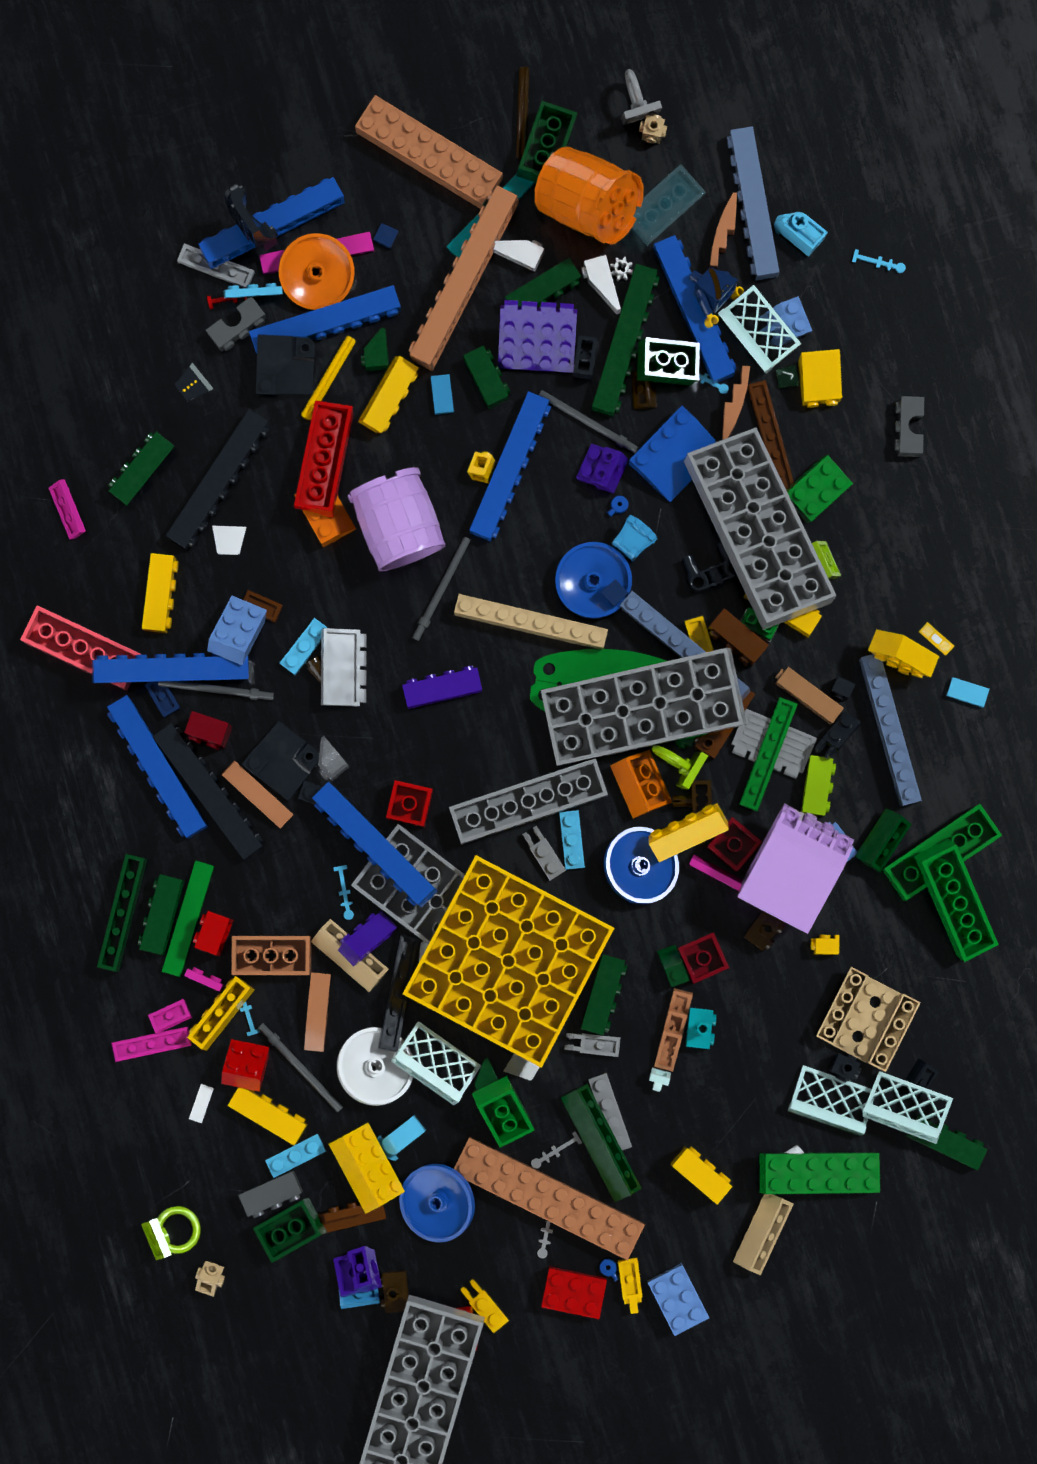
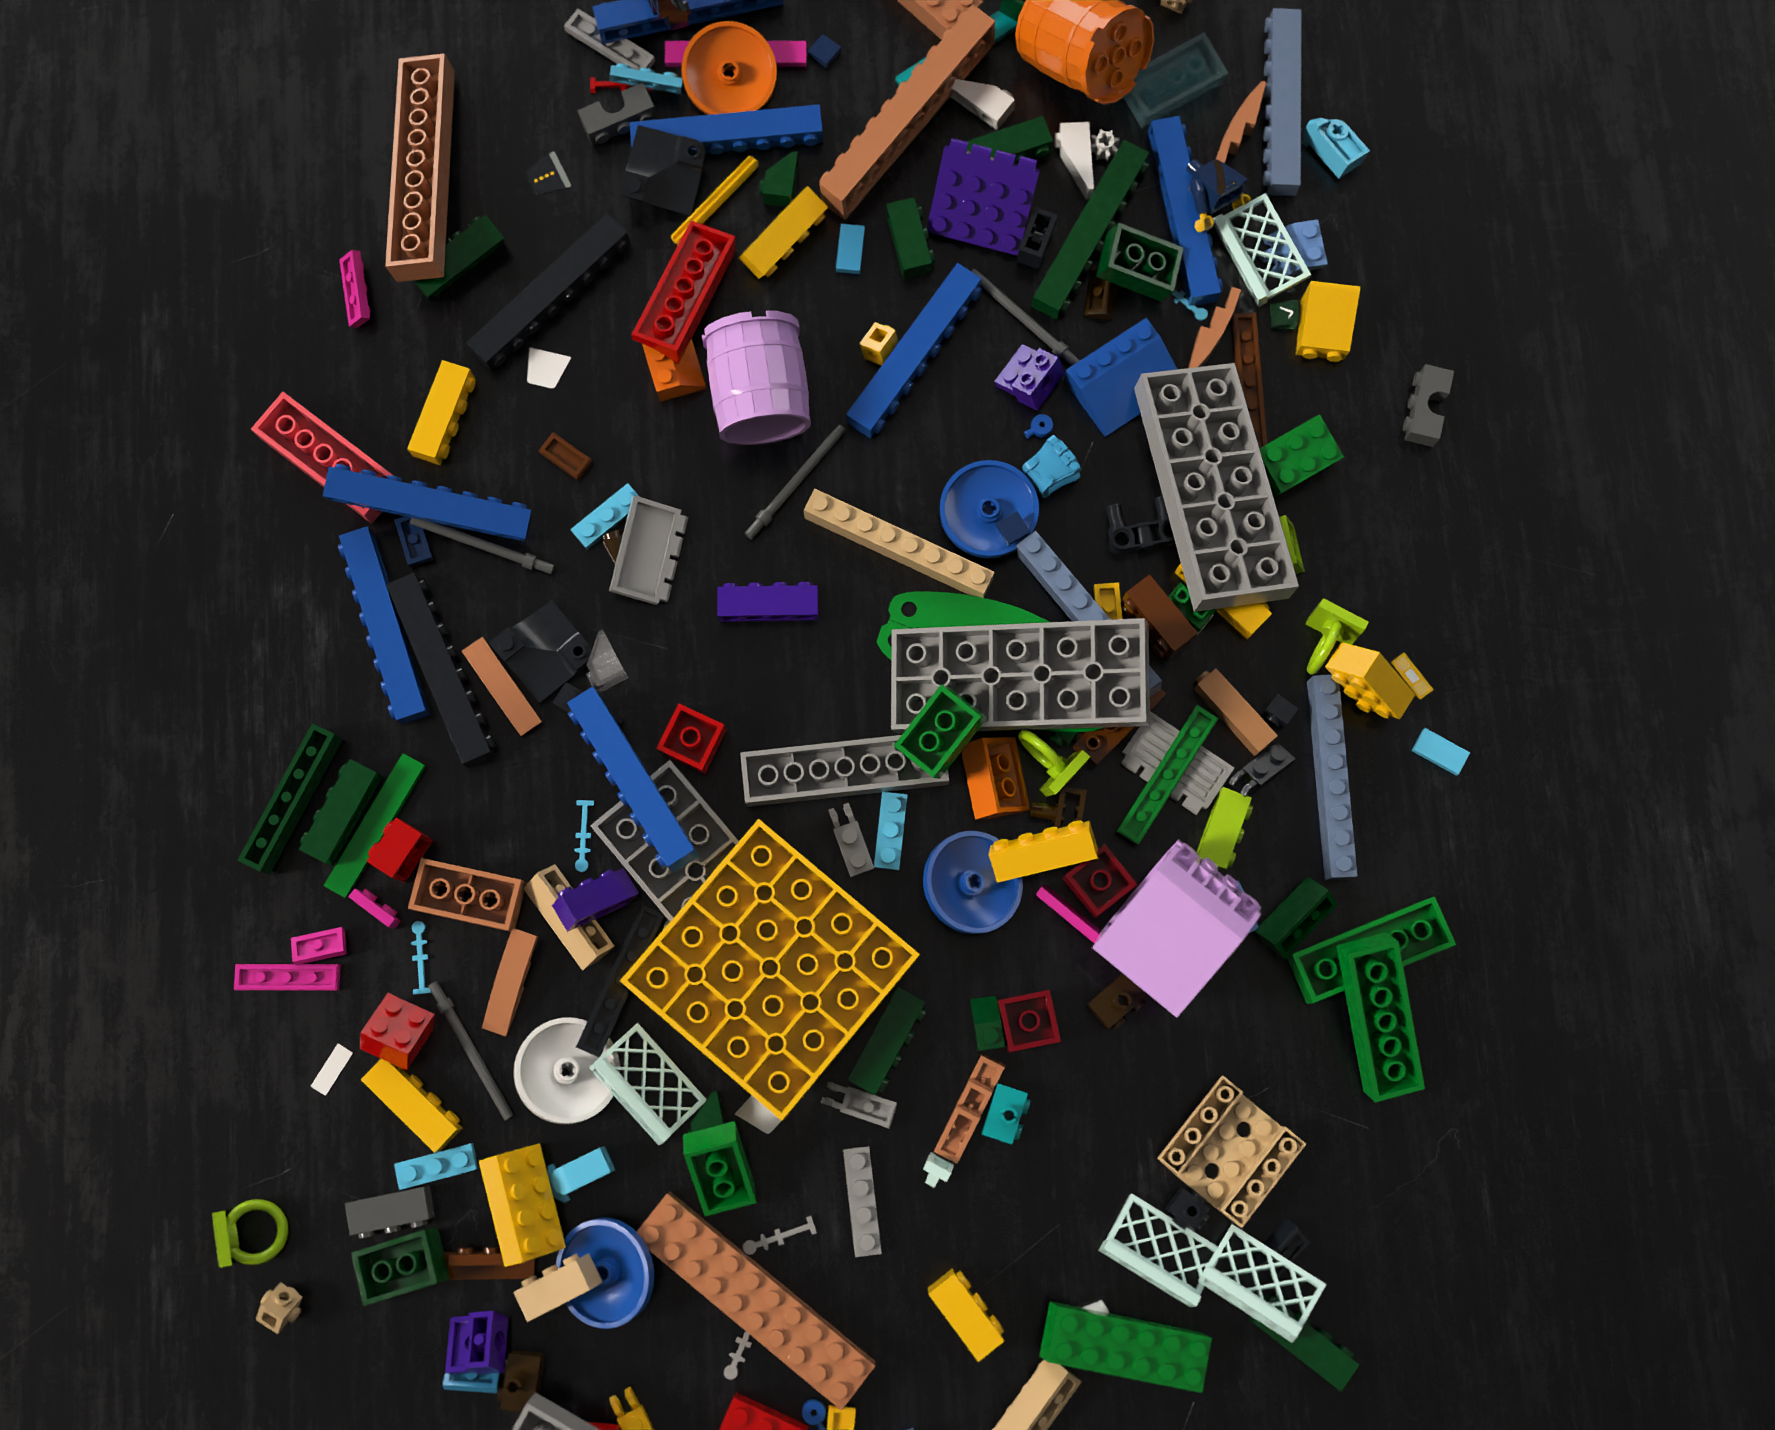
camera: 10 degrees right, 5 degrees down
(97, 404) = (420, 168): none -> nougat brick
(208, 729) = (458, 590): dark red brick -> none
(220, 1013) = (383, 956): yellow brick -> none
(237, 630) = (524, 475): medium blue brick -> none
(405, 1219) = (557, 1285): none -> tan brick
(594, 761) = (940, 731): none -> green brick
(601, 1143) = (841, 1240): dark green brick -> none
(825, 945) = (1193, 1039): yellow brick -> none
(870, 615) = (1335, 625): none -> lime tile
(900, 267) = (1449, 215): medium azure piece -> none

